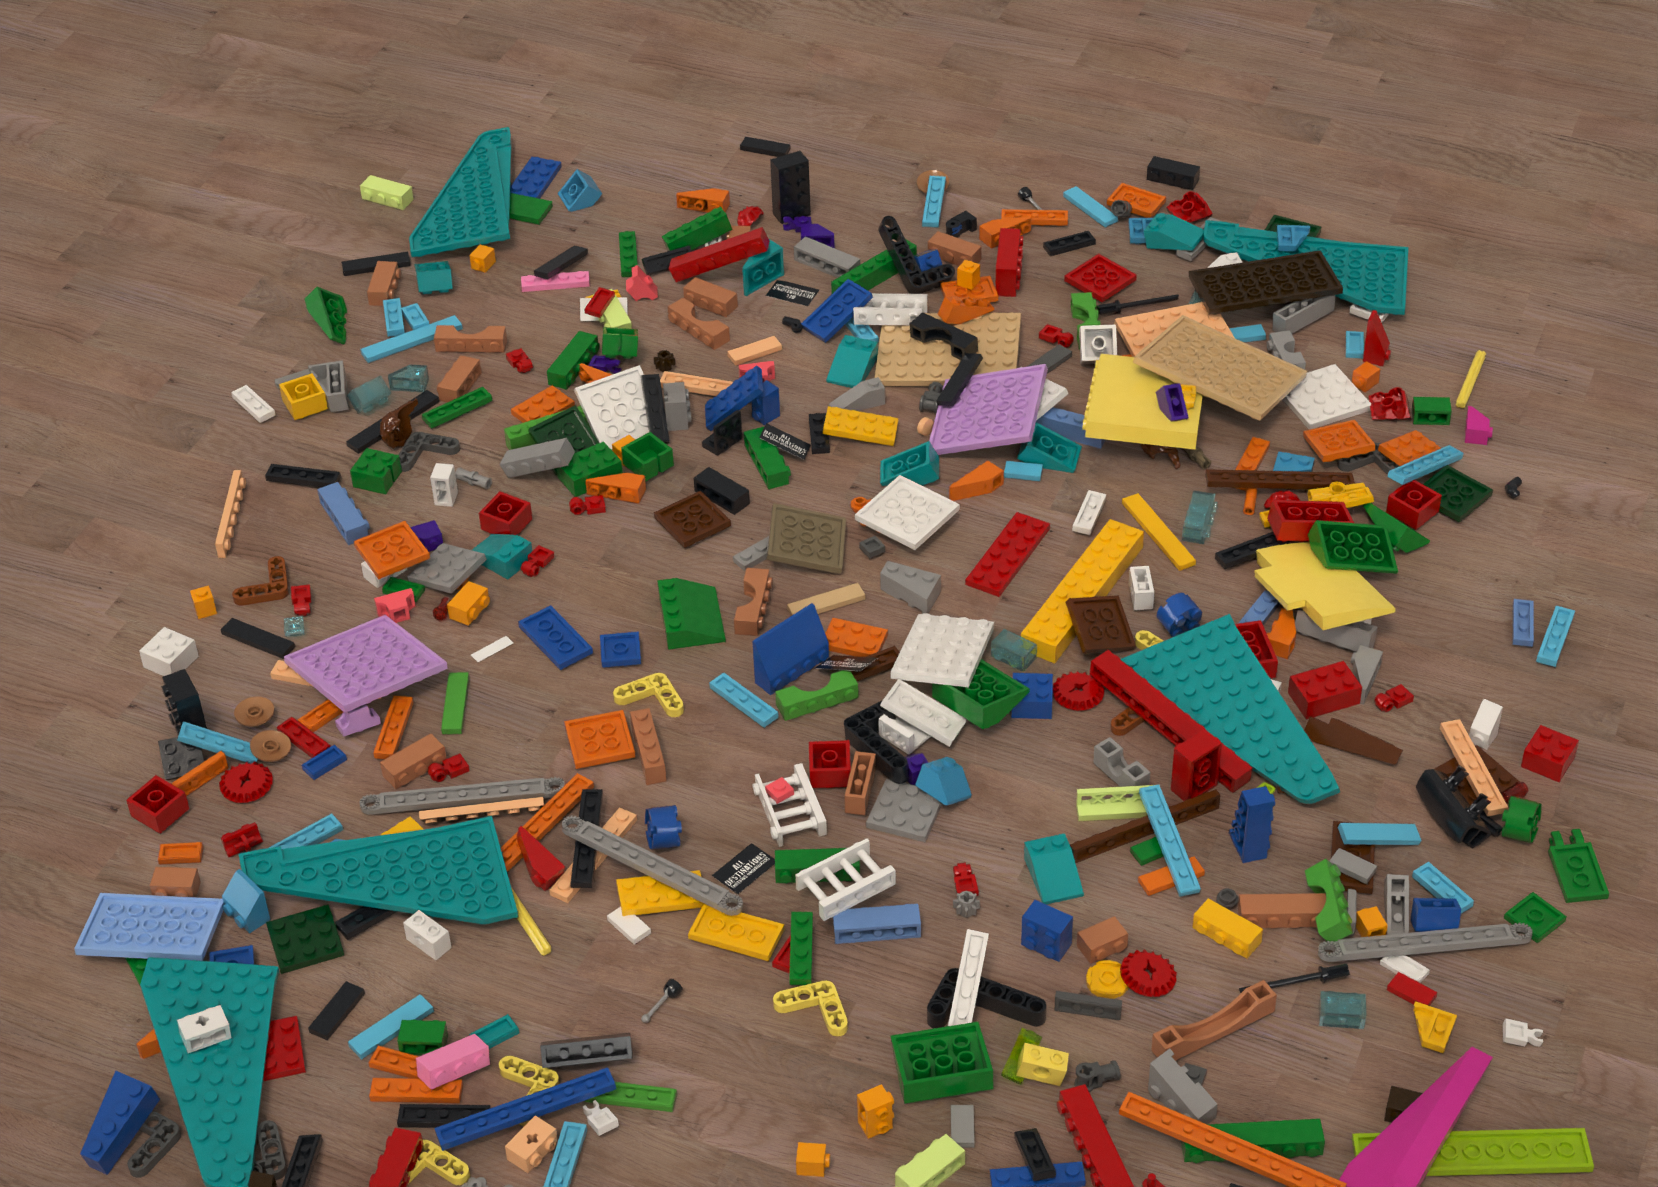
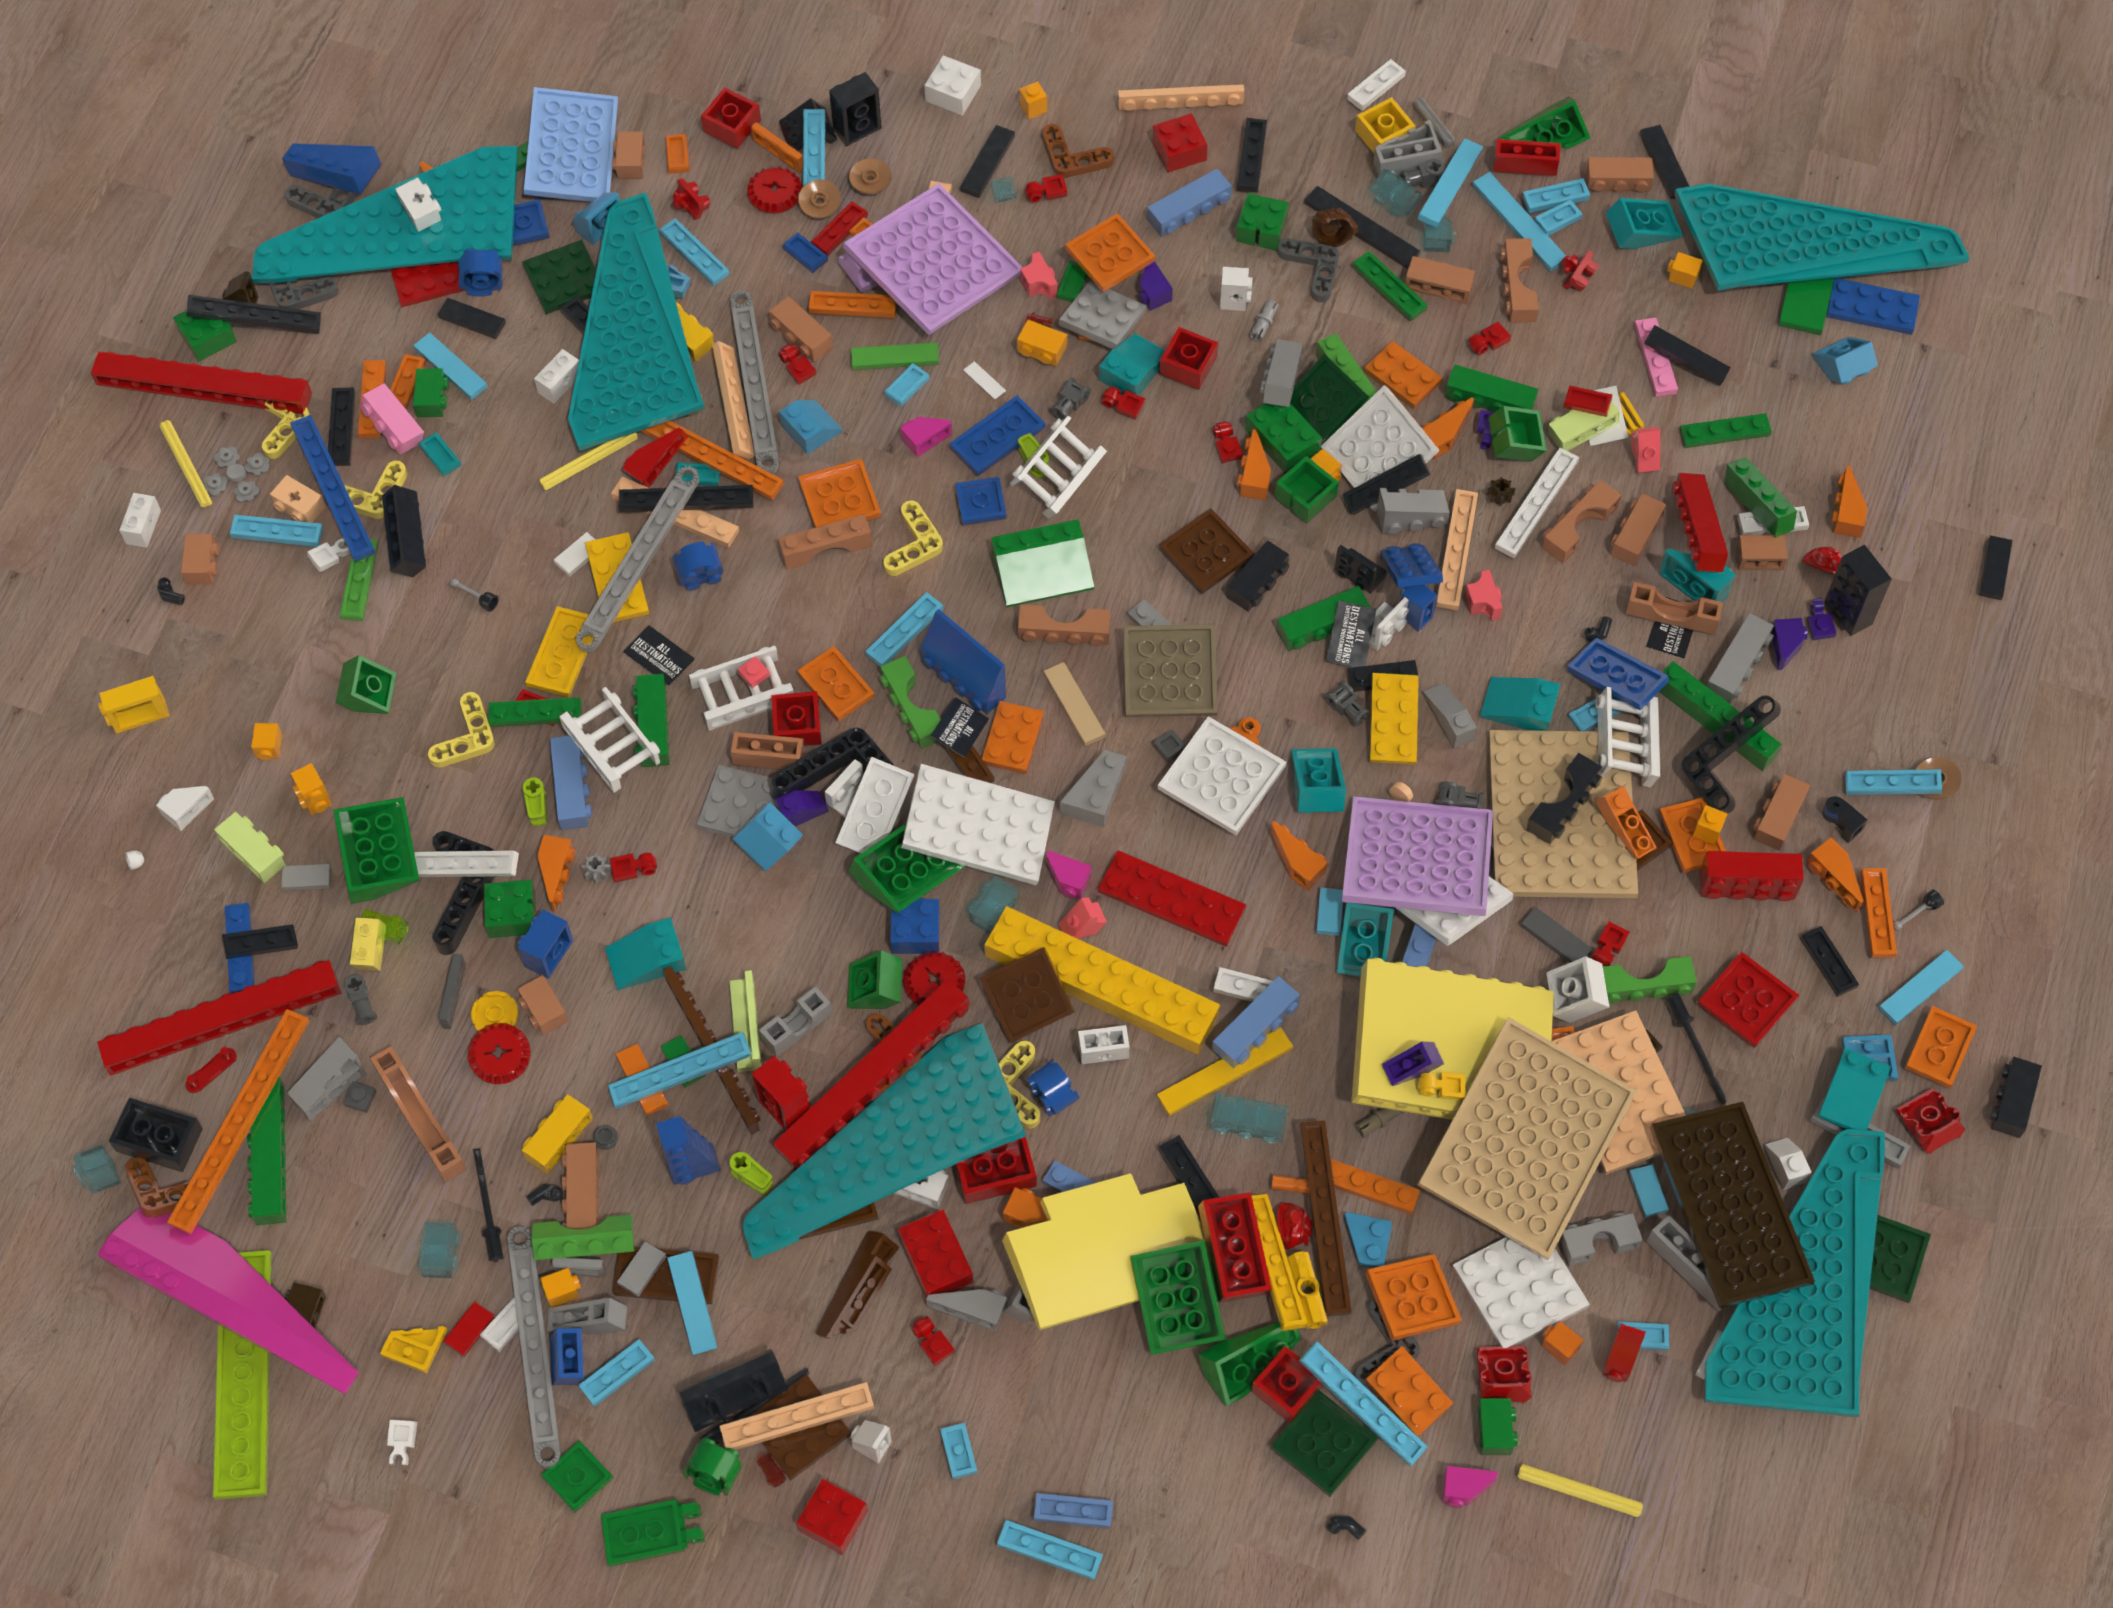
camera: 85 degrees right, 20 degrees up
(279, 514) = (1179, 142): none -> red brick
(291, 991) = (480, 272): none -> blue brick
(353, 377) = (1425, 174): none -> dark grey connector
(355, 325) = (1526, 157): none -> red brick
(372, 364) = (1450, 183): none -> medium azure tile
(386, 192) = (1808, 147): yellowish green brick -> none
(468, 309) = (1584, 264): none -> red hips
(487, 696) = (906, 385): none -> medium azure tile
(521, 759) = (808, 424): none -> dark azure slope
(526, 590) = (1070, 398): none -> dark grey connector
(546, 682) = (925, 433): none -> dark pink slope
(555, 840) = (707, 476): none -> teal tile
(581, 615) = (1028, 446): none -> lime piece
(601, 593) = (1078, 471): none -> white fence
(661, 261) = (1704, 463): black plate -> none
(678, 345) = (1536, 503): none -> white plate
(754, 350) = (1540, 591): light nougat tile -> none
(757, 1082) = (365, 686): none -> green slope
(778, 416) = (1387, 622): none -> white bracket
(789, 744) = (836, 683): none -> orange plate
(790, 272) = (1697, 615): none -> nougat arch
(843, 450) = (1346, 701): none -> dark grey connector
(896, 948) = (535, 802): none -> lime piece
(927, 259) = (1742, 773): blue torso -> none
(952, 932) = (554, 860): none -> orange slope
(959, 379) = (1481, 822): black tile -> none
(988, 605) = (1068, 874): none -> dark pink slope
(1008, 962) = (509, 908): none -> green piece
(1030, 595) = (1083, 919): none -> coral brick
(1082, 724) = (874, 981): none -> green slope
(1118, 206) = (1906, 1021): dark grey wheel -> none
(1123, 502) = (1256, 1022): none -> medium blue brick
(1280, 939) = (545, 1192): none -> black arm
(1291, 236) = (1848, 1243): dark azure wing -> none
(1484, 683) = (958, 1451): none -> medium azure plate

